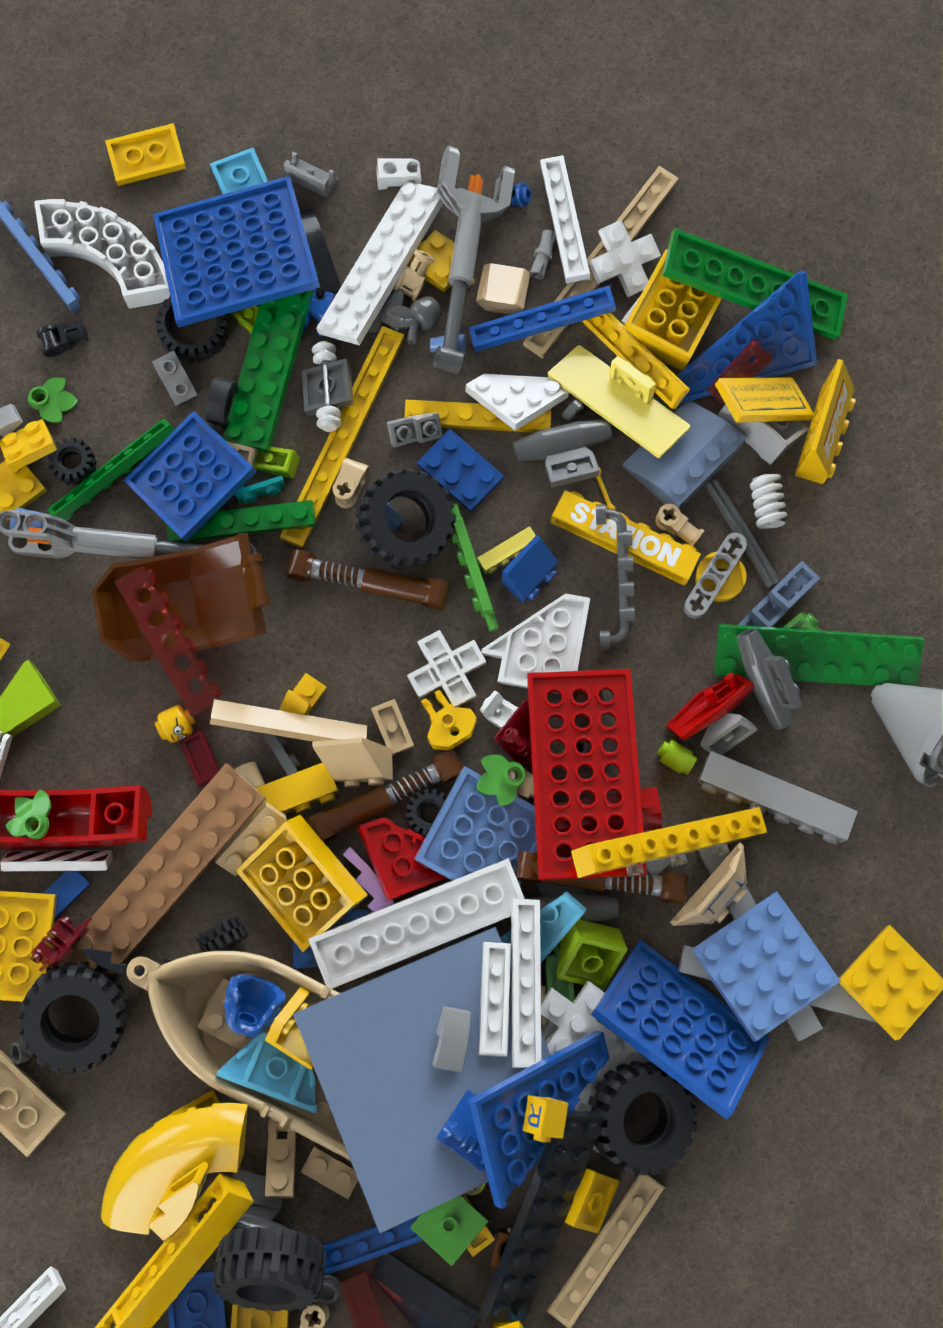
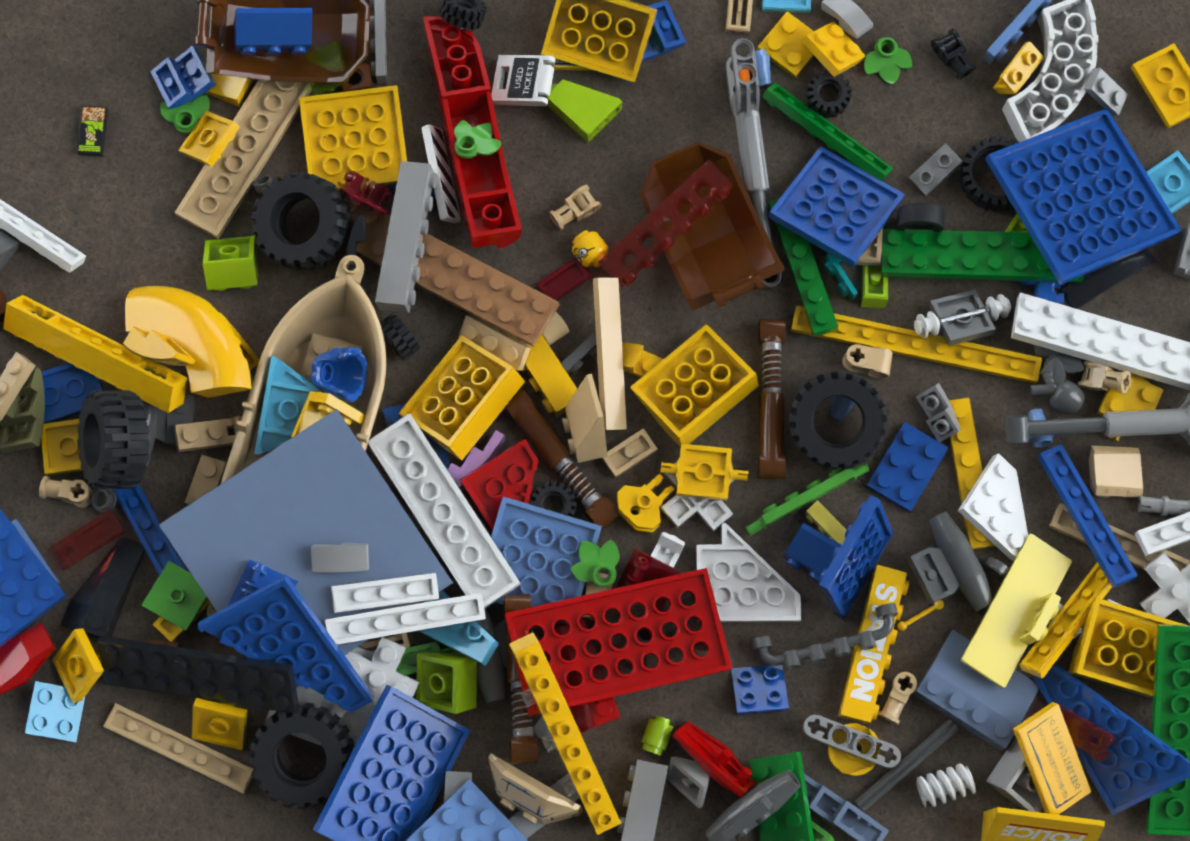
camera: 75 degrees right, 0 degrees up
(95, 281) = (1019, 70): none -> yellow bracket
(98, 1104) = (230, 263): none -> lime slope
(117, 908) = (405, 237): none -> light grey brick
(127, 728) = (577, 206): none -> tan connector
(137, 209) = (1105, 91): none -> light grey plate
(339, 649) = (695, 386): none -> yellow slope
(428, 657) = (704, 472): none -> yellow plate
(545, 1118) = (283, 651): yellow brick -> none
(548, 533) = (856, 557): none -> blue plate
(649, 650) = (759, 689): none -> blue hinge

